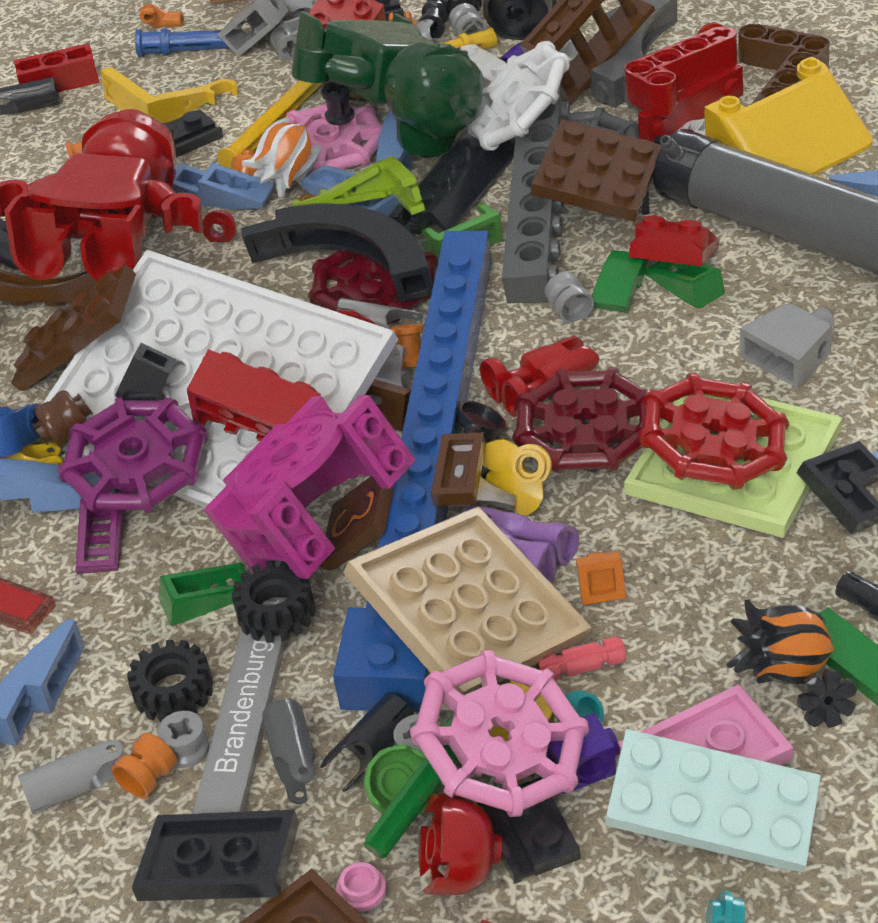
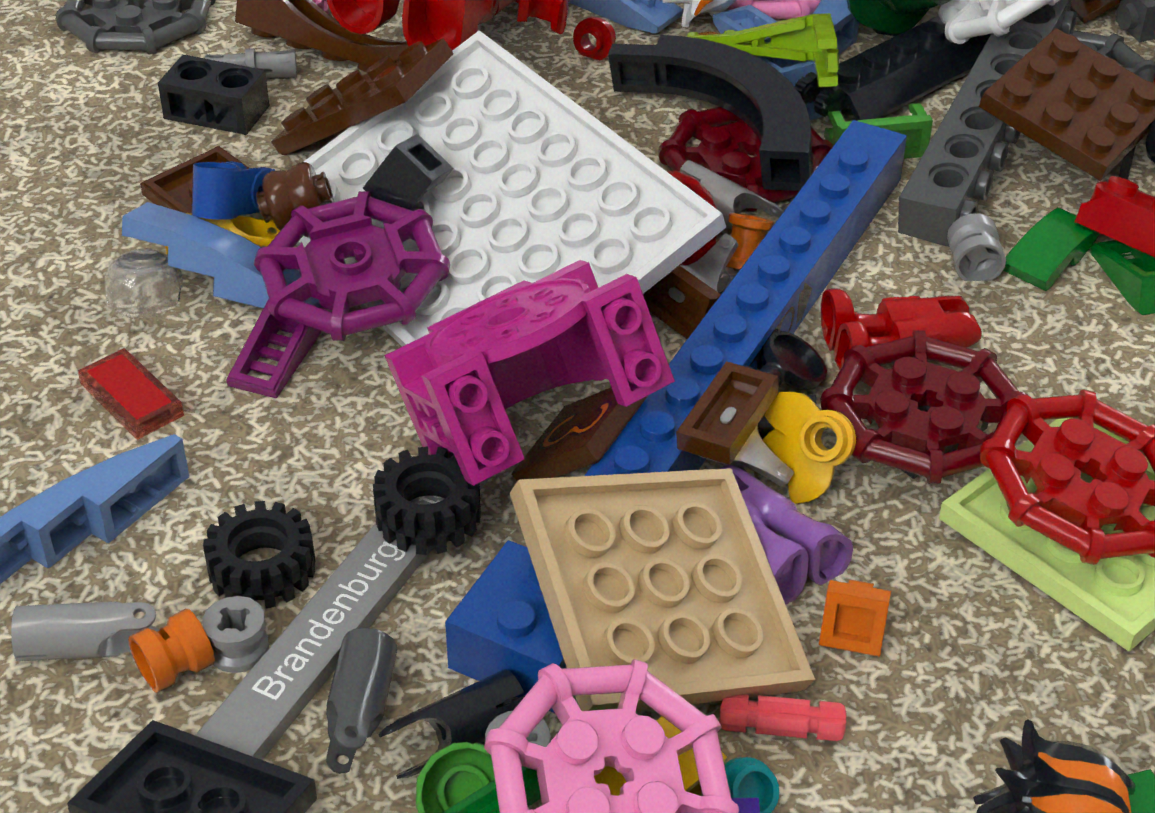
camera: 15 degrees right, 0 degrees up
(189, 592) = (331, 452): green slope -> none
(243, 395) = (501, 231): red wedge -> none

